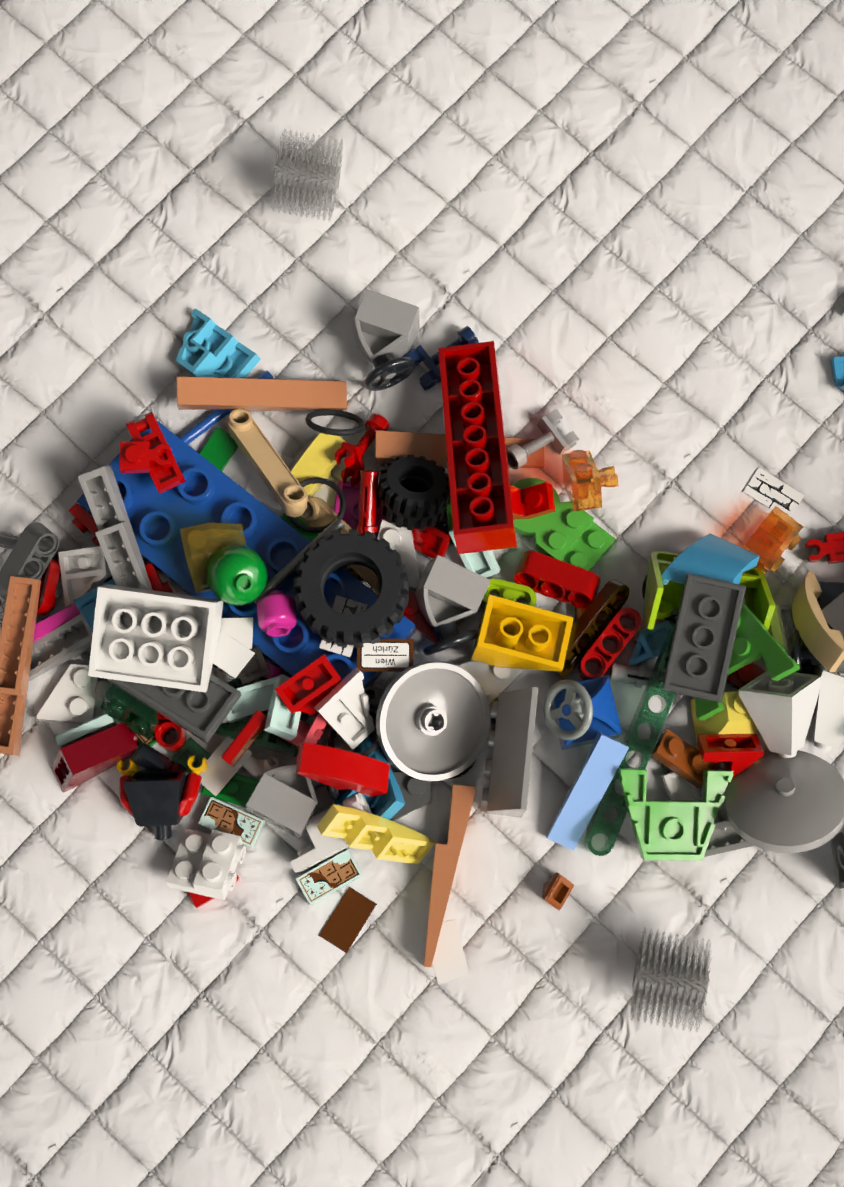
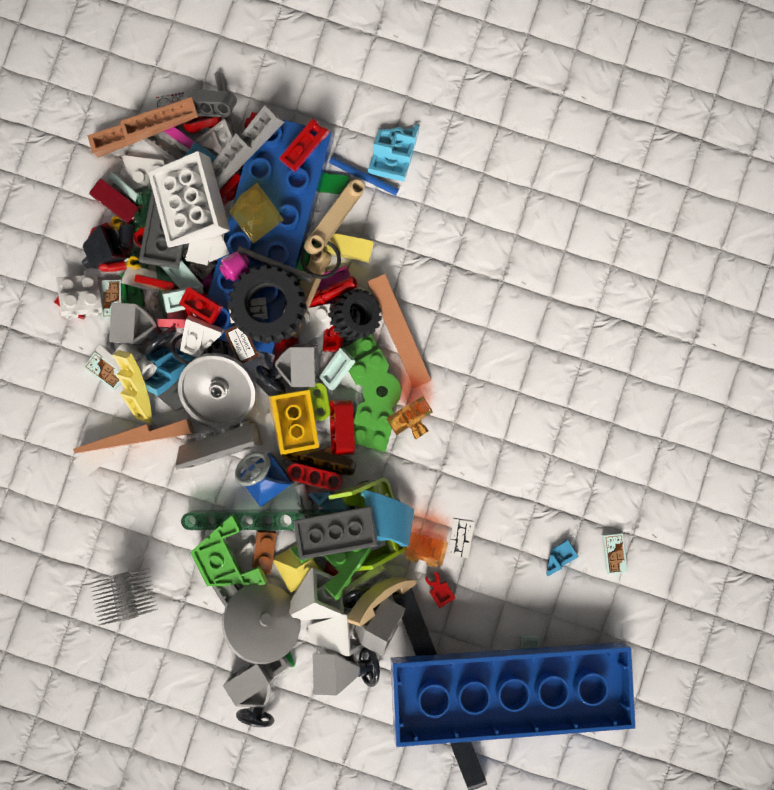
camera: 65 degrees right, 10 degrees up
(138, 456) = (294, 137): red plate -> none
(236, 575) = (245, 231): green cylinder -> none
(260, 394) = (378, 192): nougat slope -> none
(307, 175) = (536, 152): light grey piece -> none
(336, 432) = (371, 250): black tyre -> none
(343, 769) = (156, 349): red slope -> none
(347, 919) = (86, 392): reddish brown sticker -> none
(354, 453) = (359, 269): red bar -> none
(385, 335) = (451, 249): light grey piece -> none
(431, 378) = (451, 278): dark blue bar -> none
(476, 449) = (397, 340): red brick -> none
(518, 455) = (409, 368): light grey bar -> none
(532, 501) = (378, 383): red slope -> none
(556, 890) = (153, 507): dark orange slope -> none
(587, 790) = (218, 500): light blue slope -> none
(734, 750) = (280, 579): red slope -> none

